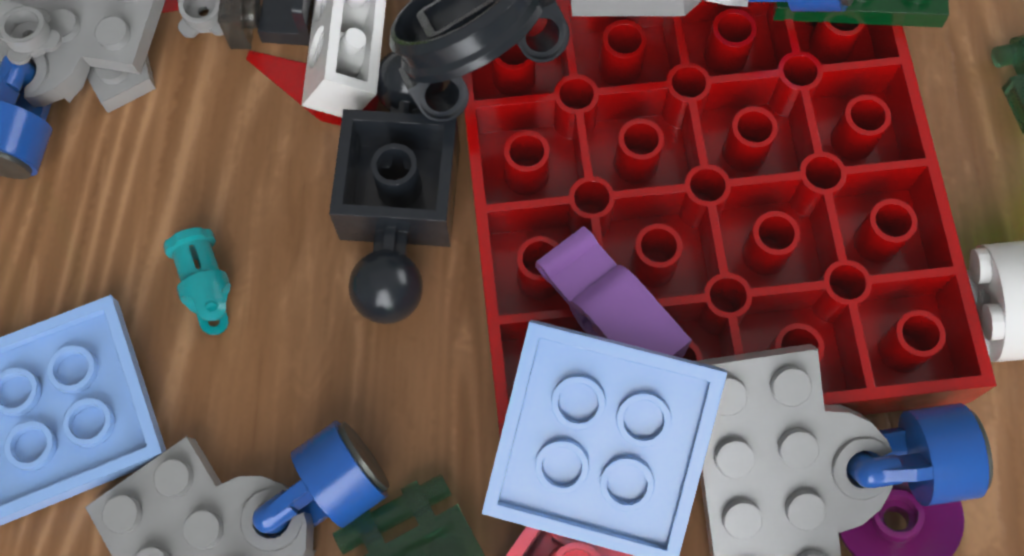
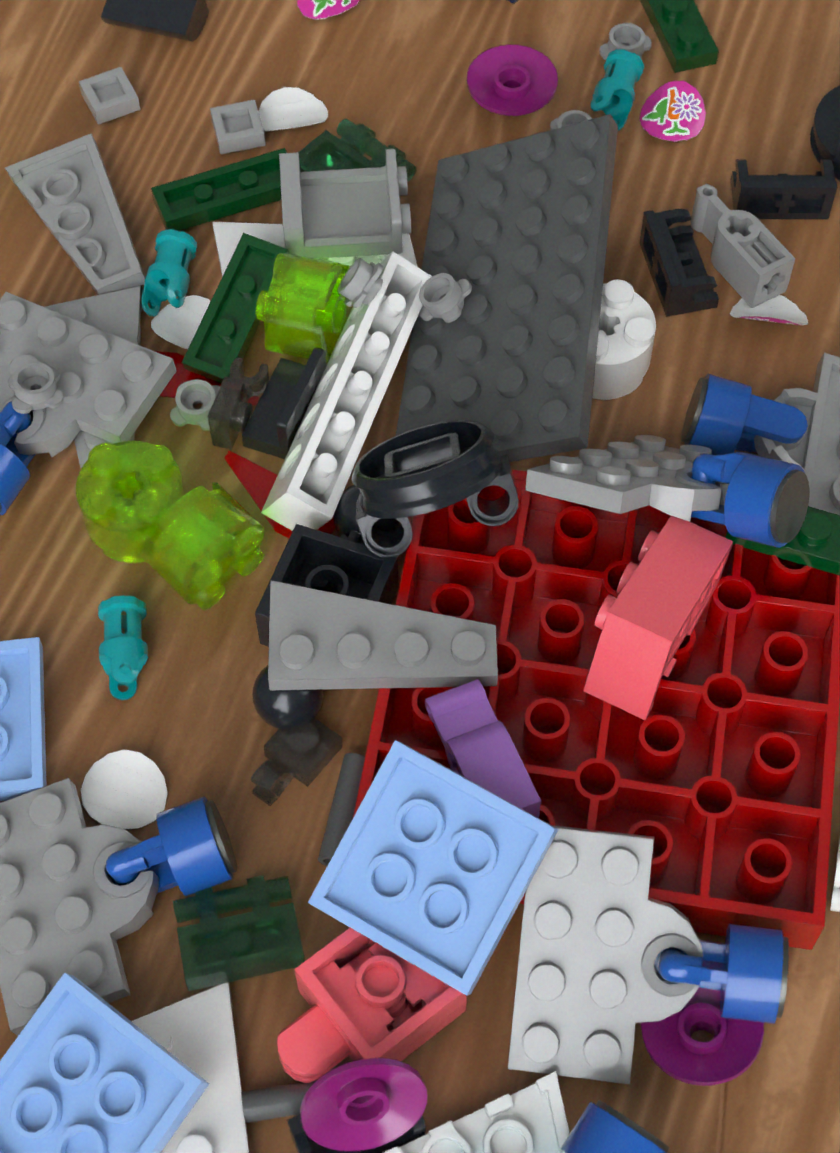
camera: 15 degrees right, 10 degrees down
(165, 125) = (125, 494): none -> clear neon green brick
(247, 430) = (124, 790): none -> white sticker
(254, 153) = (205, 545): none -> clear neon green brick
(410, 344) = (293, 754): none -> clear smoke plate
(450, 218) = (368, 644): none -> light grey wing
(476, 389) = (342, 805): none -> dark grey piece
(743, 111) = (654, 613): none -> coral wedge

